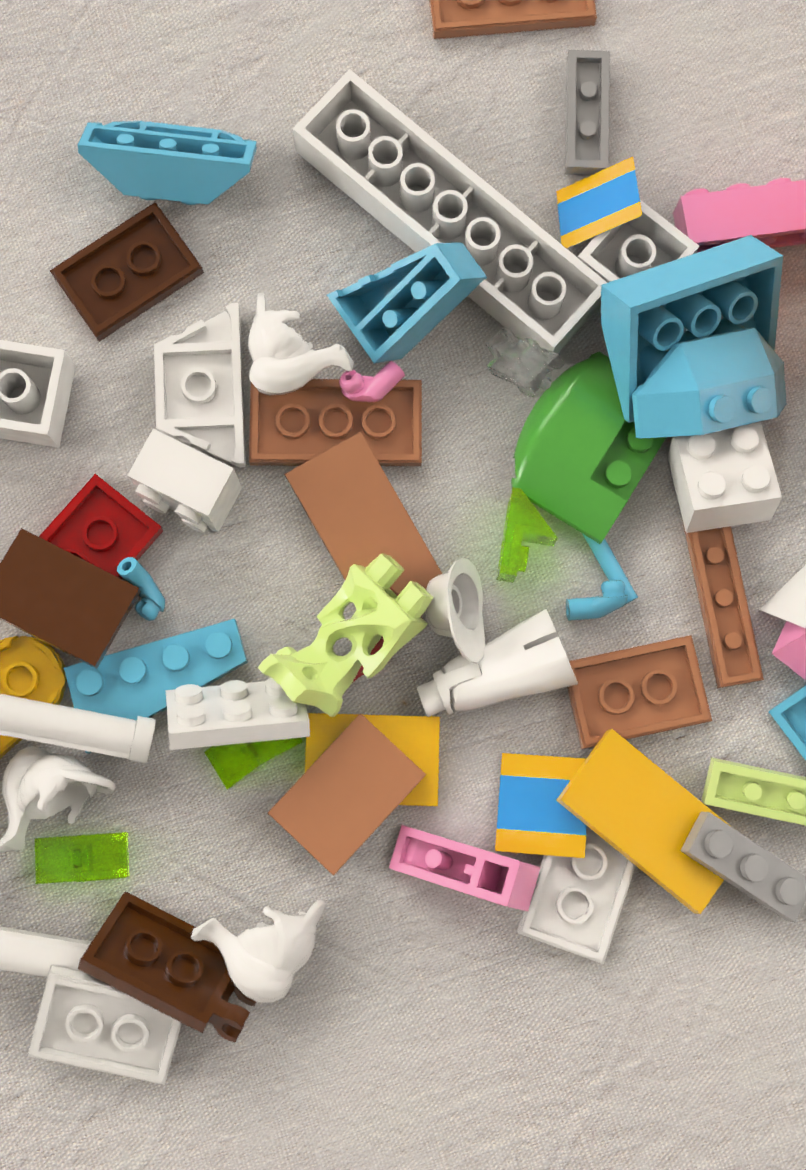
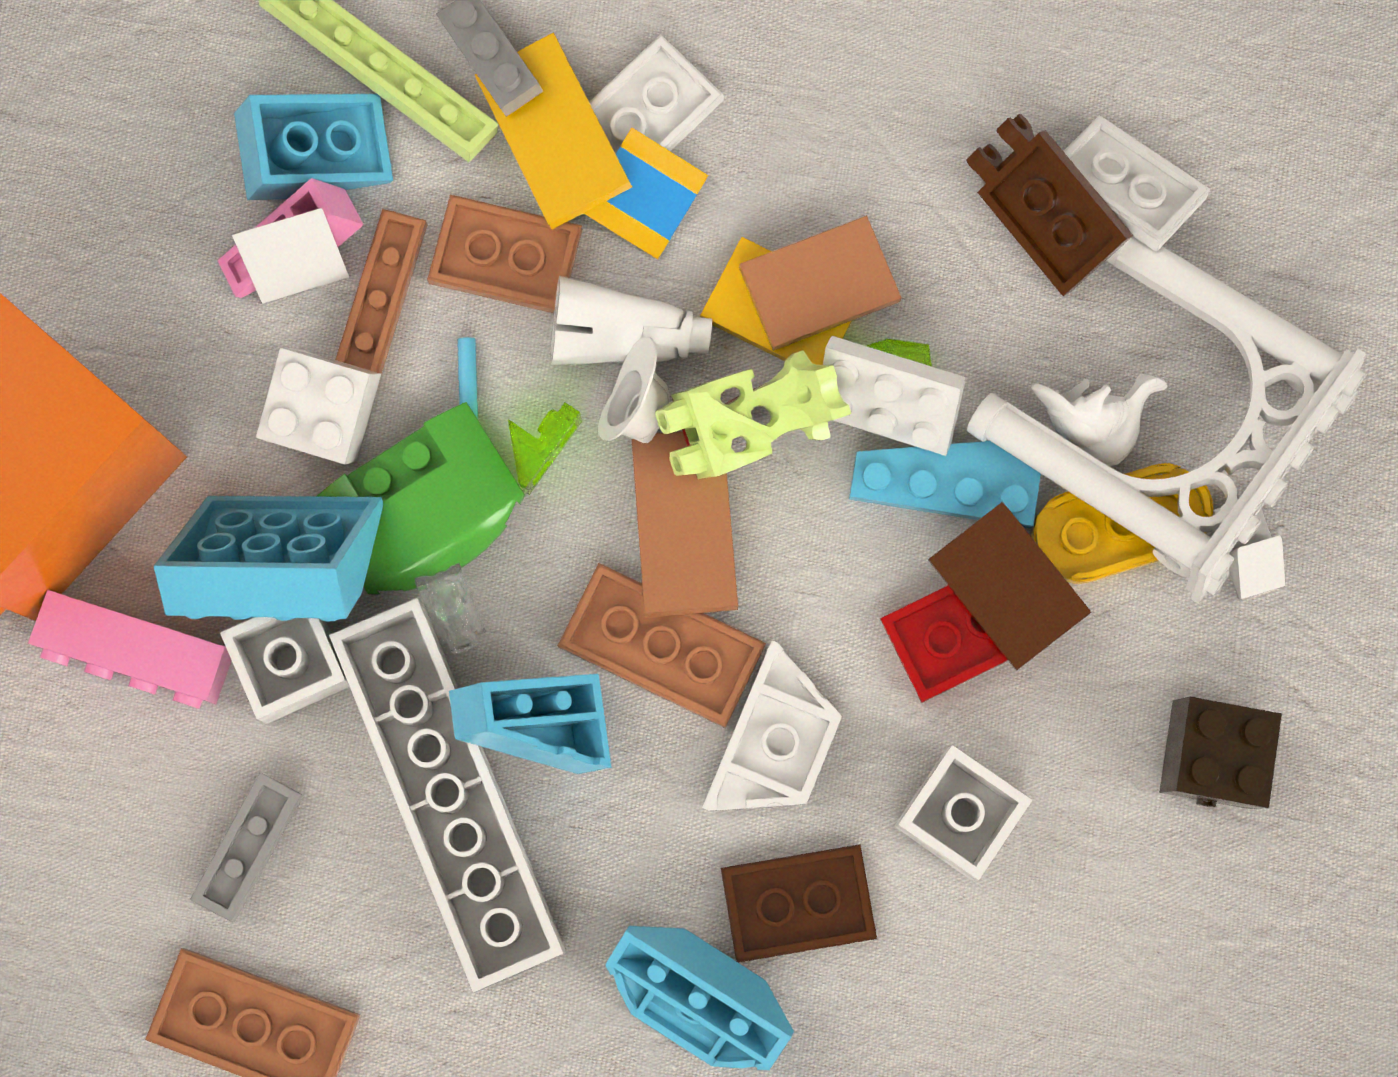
camera: 150 degrees left, 0 degrees up
(81, 858) = (1090, 345): clear neon green slope -> none
(152, 598) = (921, 569): medium azure arm -> none
(184, 481) = (839, 638): white brick -> none
(267, 956) = (961, 168): white piece -> none
(282, 357) = (688, 718): white piece -> none
(370, 388) = (613, 656): bright pink arm -> none
(465, 868) = (743, 169): bright pink slope -> none
(598, 203) = (292, 732): sticker -> none
(598, 606) = (487, 345): medium azure arm -> none
(711, 386) = (286, 484): medium azure wedge -> none

